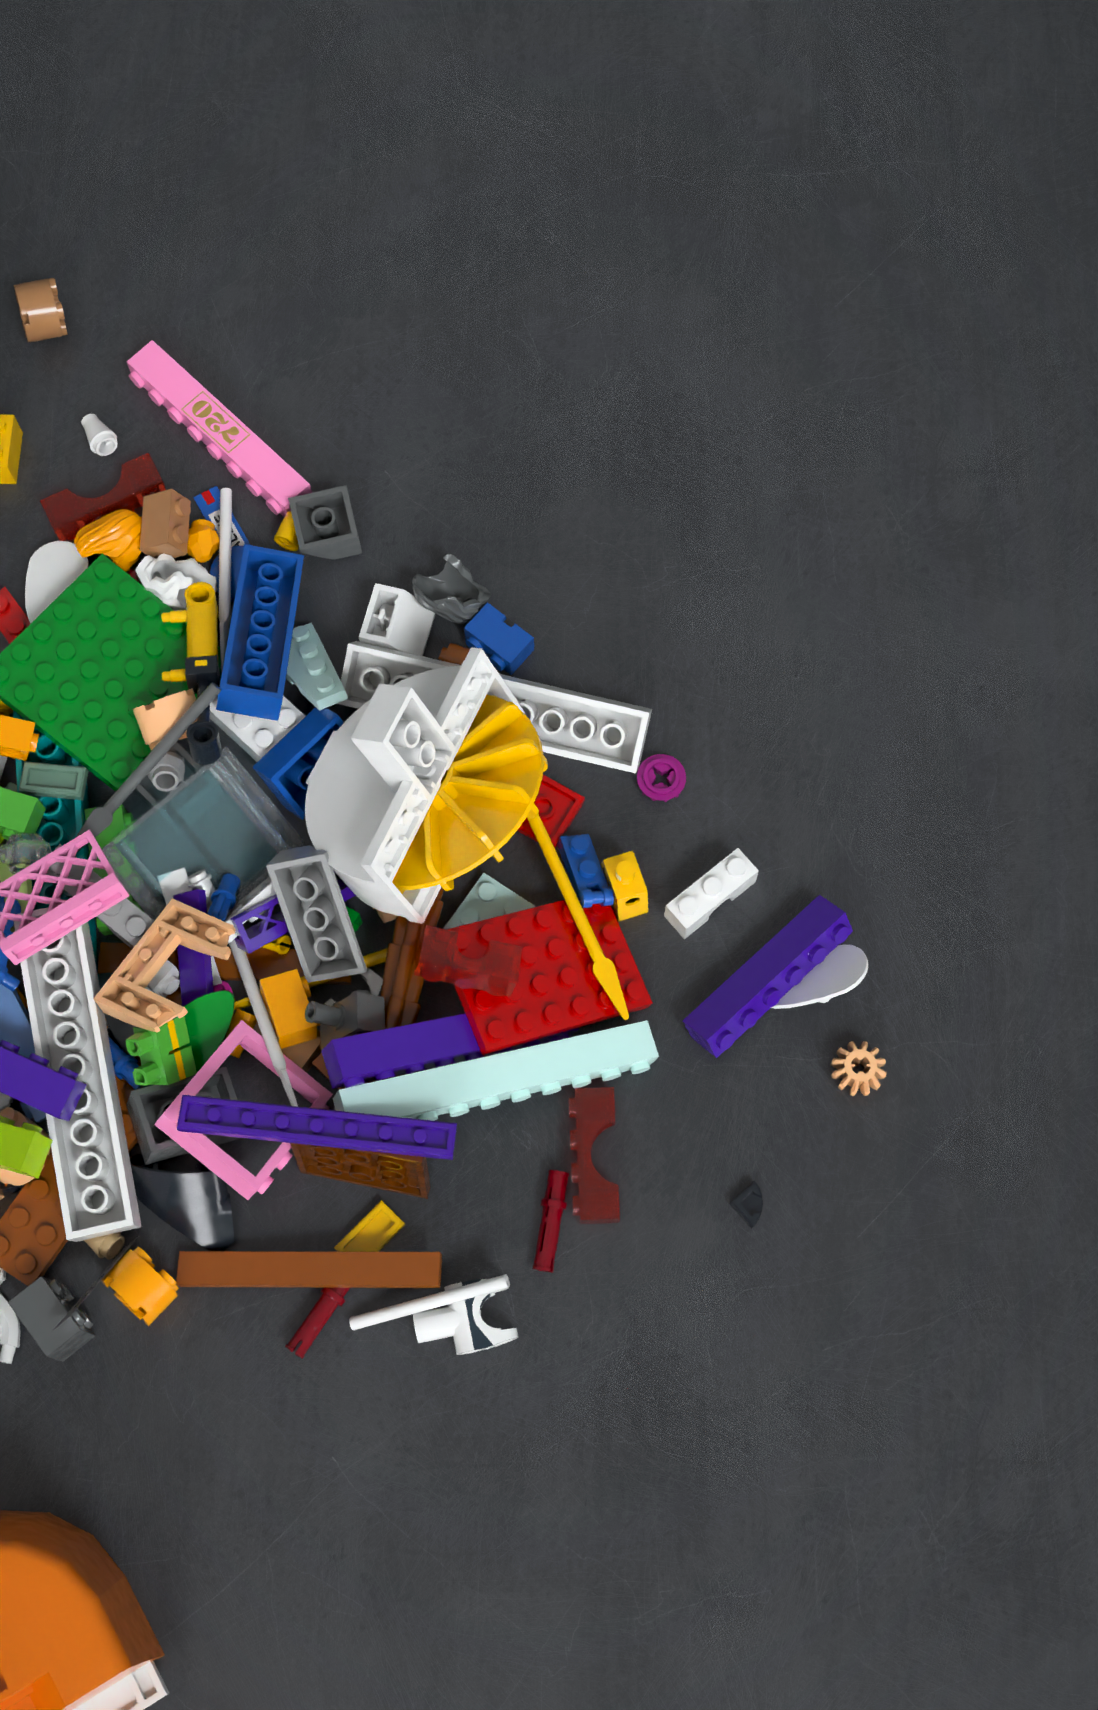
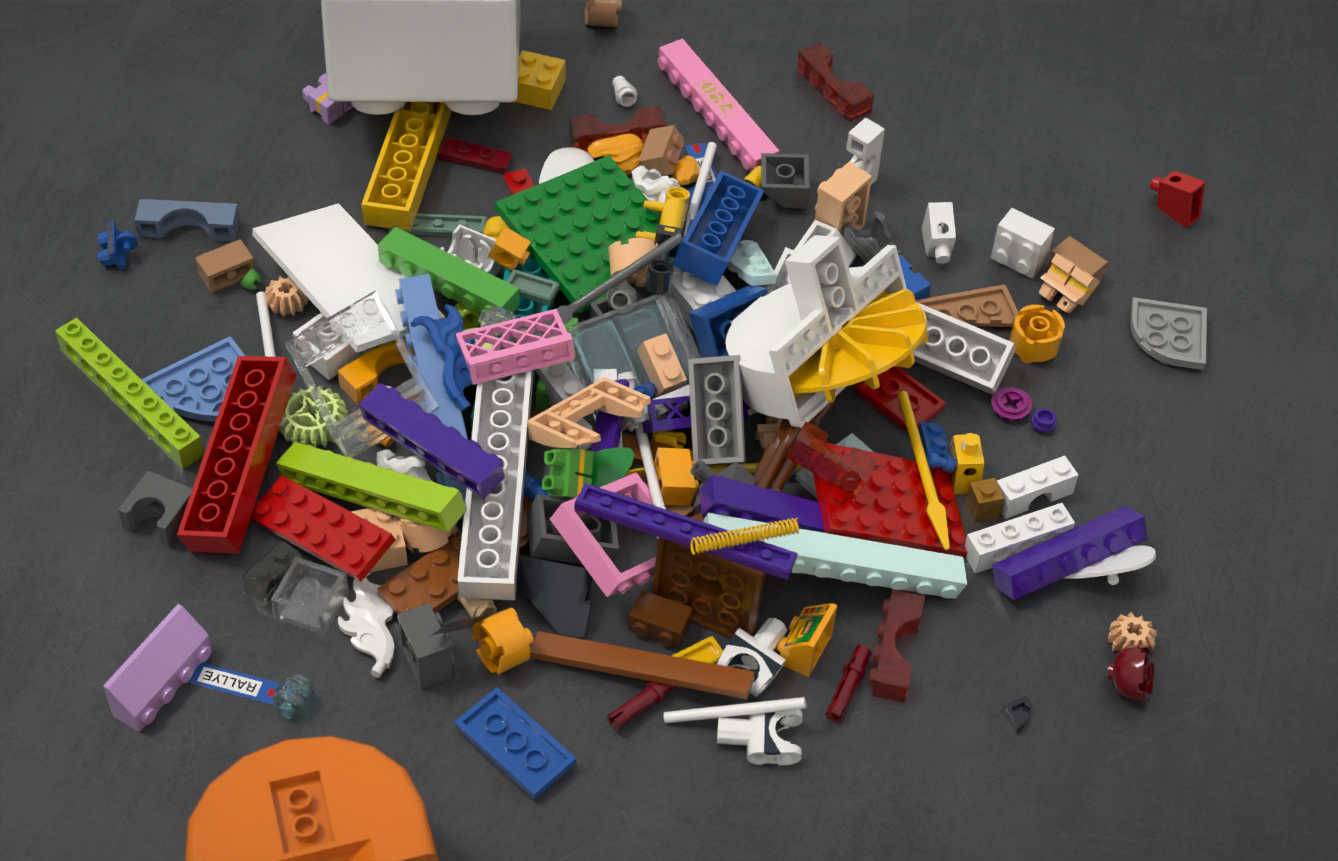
camera: 10 degrees right, 20 degrees down
(188, 1409) = (515, 743): none -> blue plate
(237, 850) = (661, 364): none -> light nougat brick
(316, 1198) = (660, 619): none -> reddish brown brick
(379, 373) = (849, 98): none -> clear red arch
(388, 1117) = (743, 537): none -> yellow piece
(403, 549) = (844, 198): none -> light nougat brick
(415, 465) = (866, 144): none -> white arch
(437, 1214) = (757, 653): none -> white connector
(490, 1180) = (808, 638): none -> light orange slope
(527, 547) = (939, 239): none -> white torso
(590, 651) = (977, 307): none -> medium nougat wing
(630, 546) = (1022, 243): none -> white brick
(656, 927) = (984, 499): none -> pearl gold brick
(686, 675) = (1037, 334): none -> light orange brick
(696, 589) = (1070, 281): none -> light nougat hips
(701, 554) = (1081, 257): none -> medium nougat brick
(703, 792) = (1044, 420): none -> dark purple plate
(705, 970) = (1016, 535): none -> white brick
(804, 422) = (1179, 197): none -> red torso
(828, 623) = (1170, 332): none -> light grey plate
(868, 1121) = (1133, 672): none -> dark red cylinder

